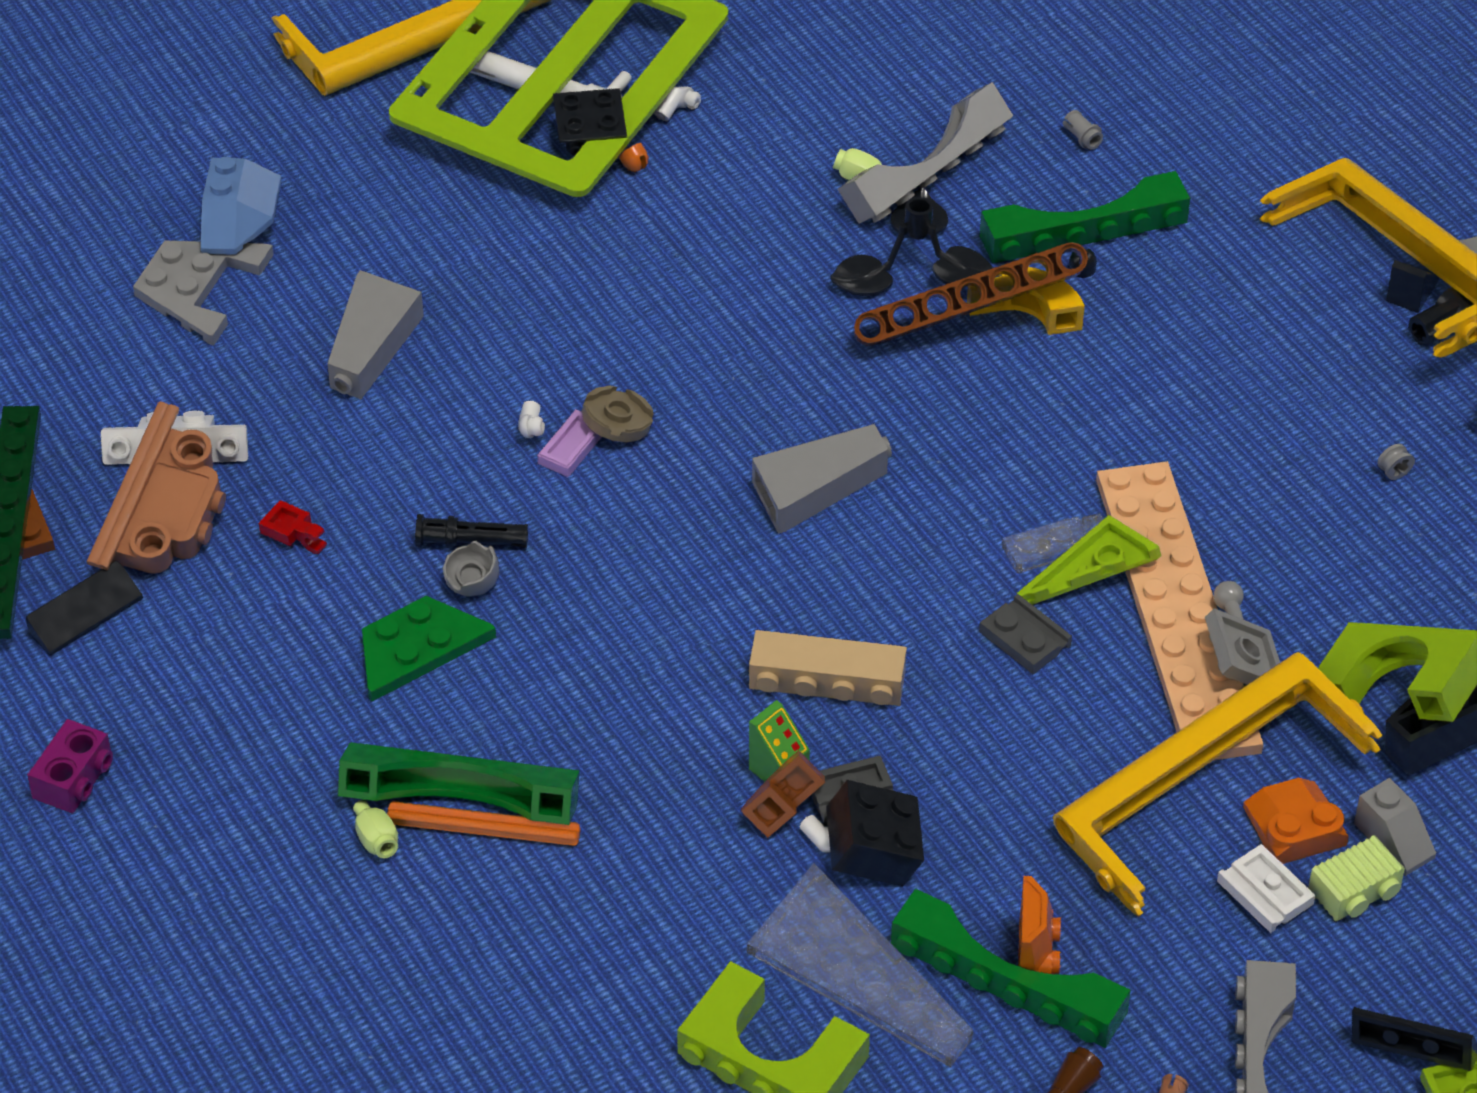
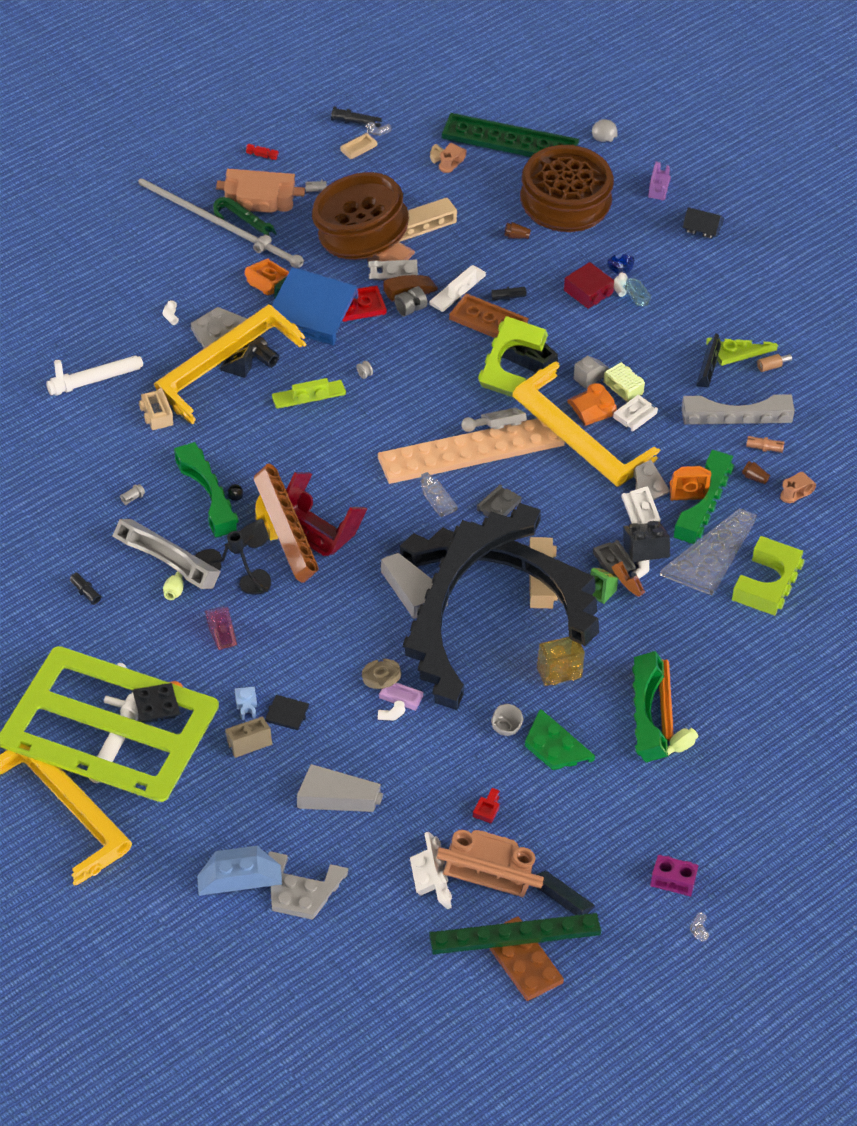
camera: 100 degrees left, 0 degrees up
(452, 531) = (478, 734): black pin -> none
(509, 232) = (249, 736): none -> dark tan hinge
(563, 295) = (287, 712): none -> black piece
(584, 653) = (560, 661): none -> clear yellow brick
(598, 244) = (246, 701): none -> light blue plate
(668, 465) = (467, 547): none -> black arch
(747, 657) = (568, 583): none -> black arch
(757, 215) = (221, 627): none -> clear pink slope
(869, 63) = (85, 588): none -> black axle
(980, 849) = (640, 506): none -> white plate
(999, 346) = (319, 533): none -> dark red windscreen
(1058, 869) = (648, 475): none -> light grey wing
(1096, 556) = (449, 471): lime wing -> none
(1287, 160) = (156, 409): none -> tan window
(1332, 379) = (308, 392): none -> lime bracket
(1361, 61) = (69, 382): none -> white cylinder

